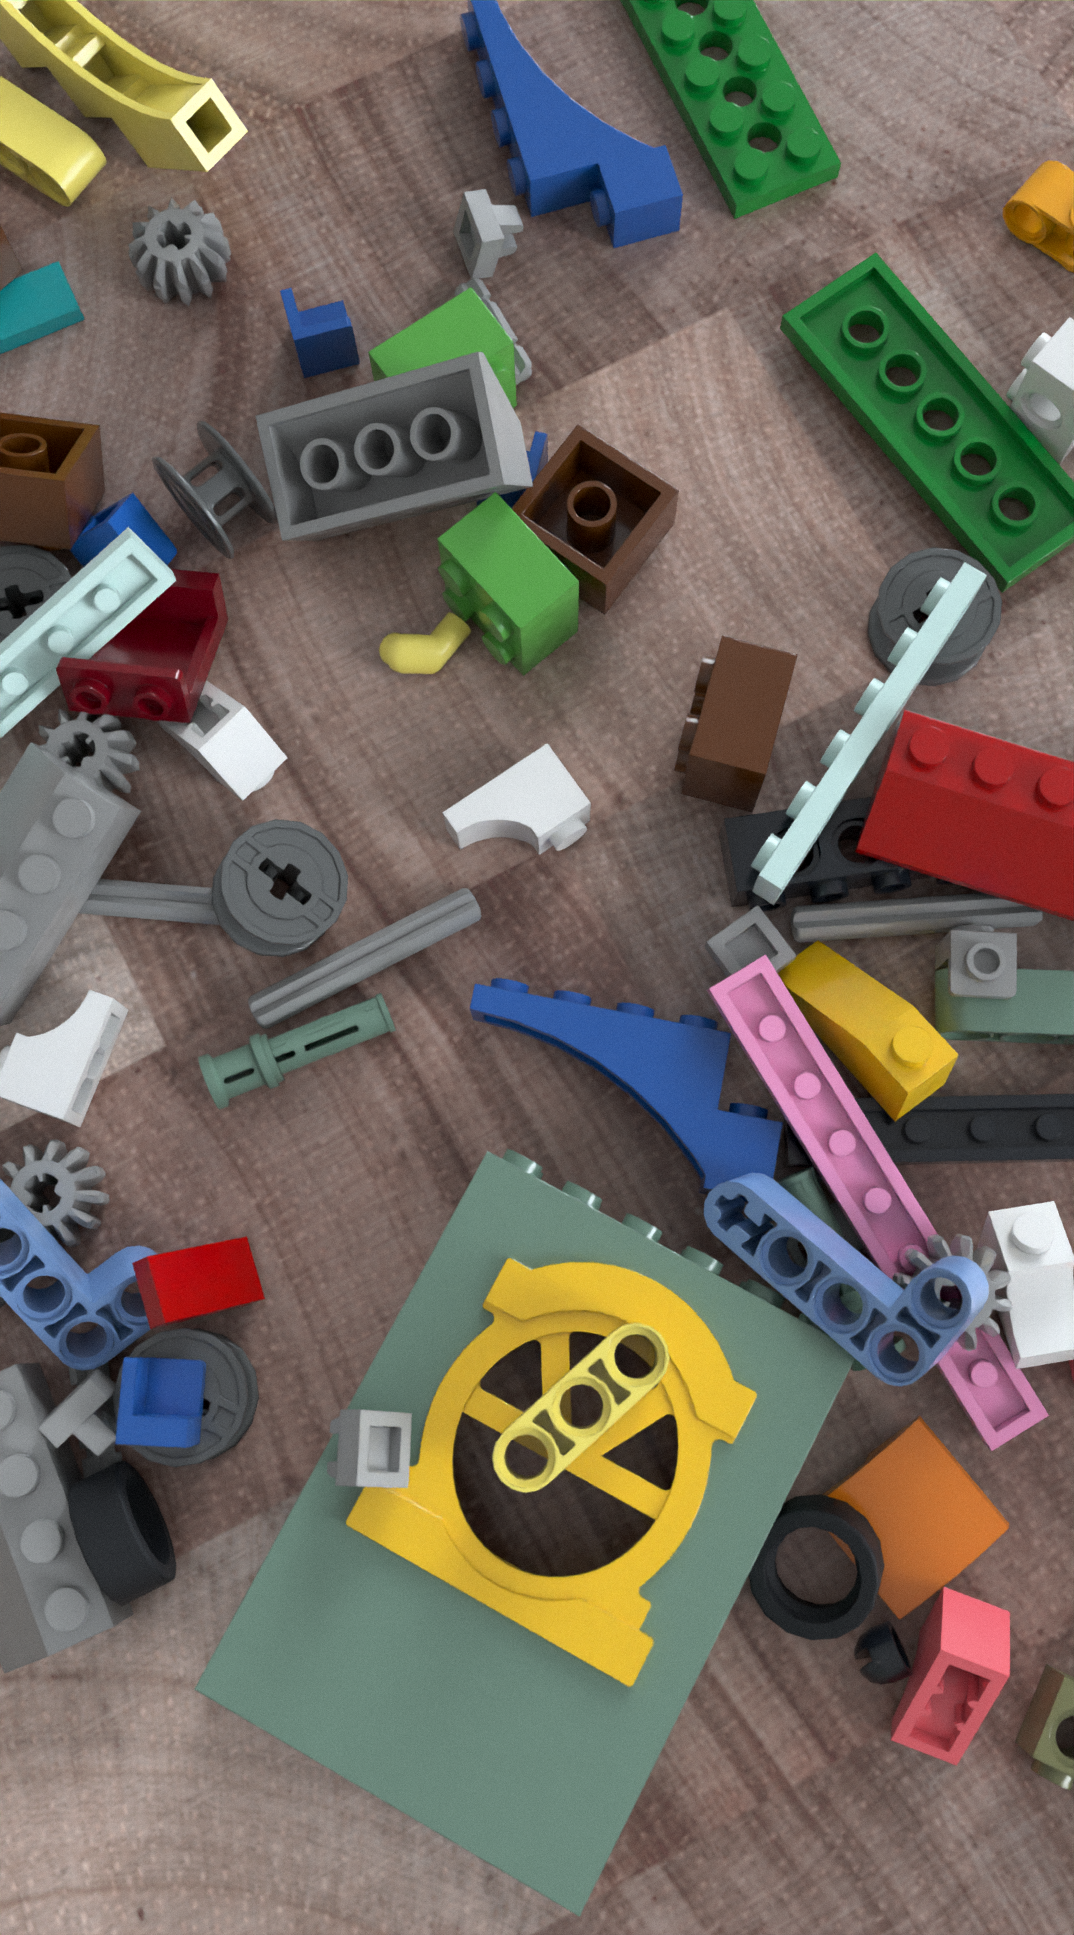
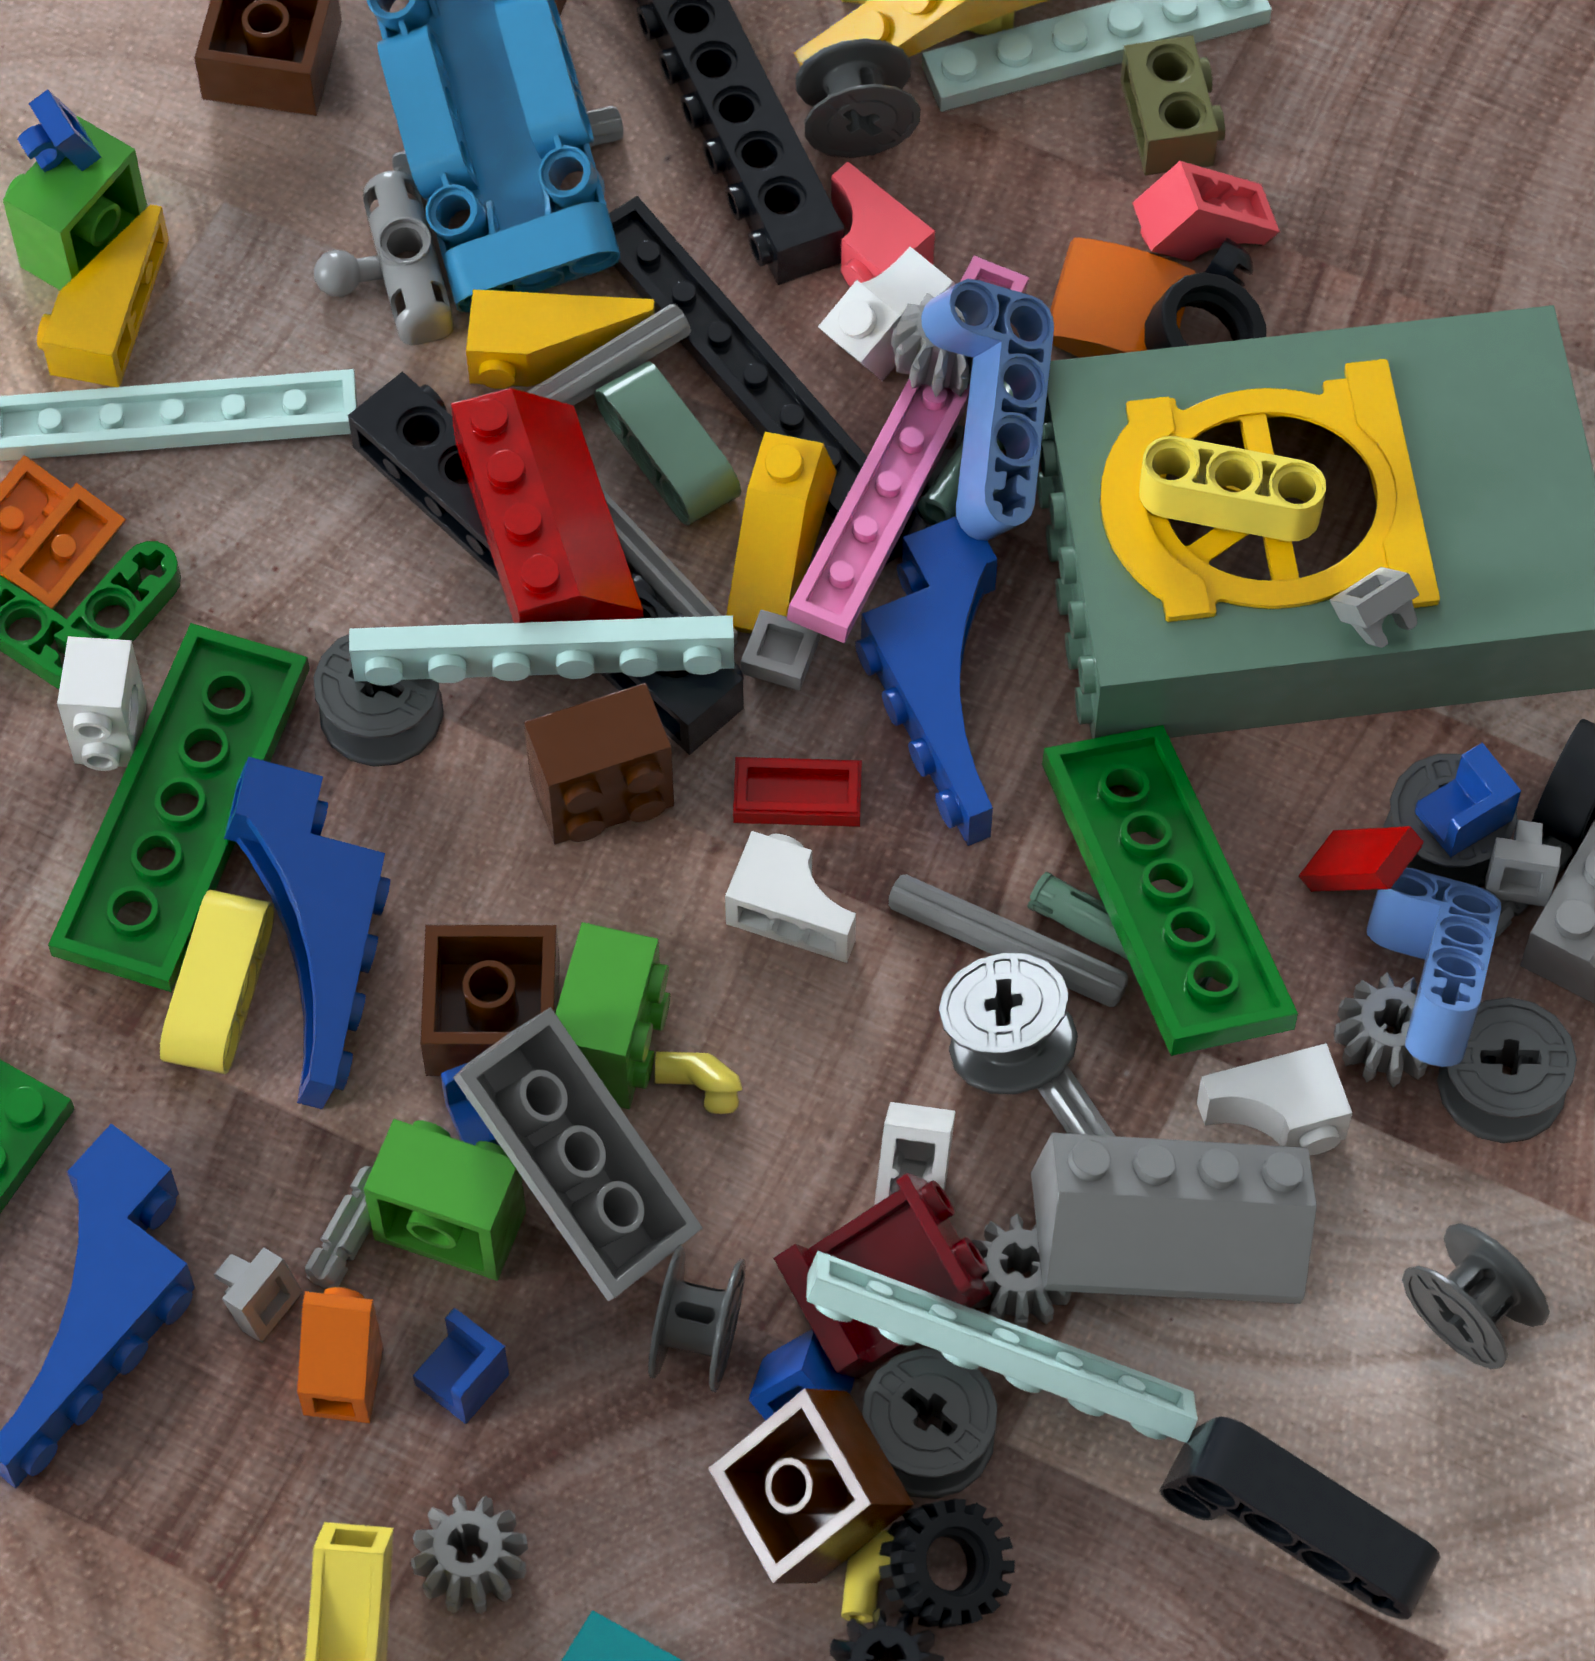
camera: 130 degrees left, 15 degrees down
(250, 1119) = (1145, 917): none -> green plate
(385, 246) = (338, 1355): none -> orange slope
(620, 891) = (797, 791): none -> red tile
(761, 354) = (217, 981): none -> light yellow beam
(769, 457) = (324, 903): none -> blue arch
(979, 962) = (660, 484): light grey bracket -> none

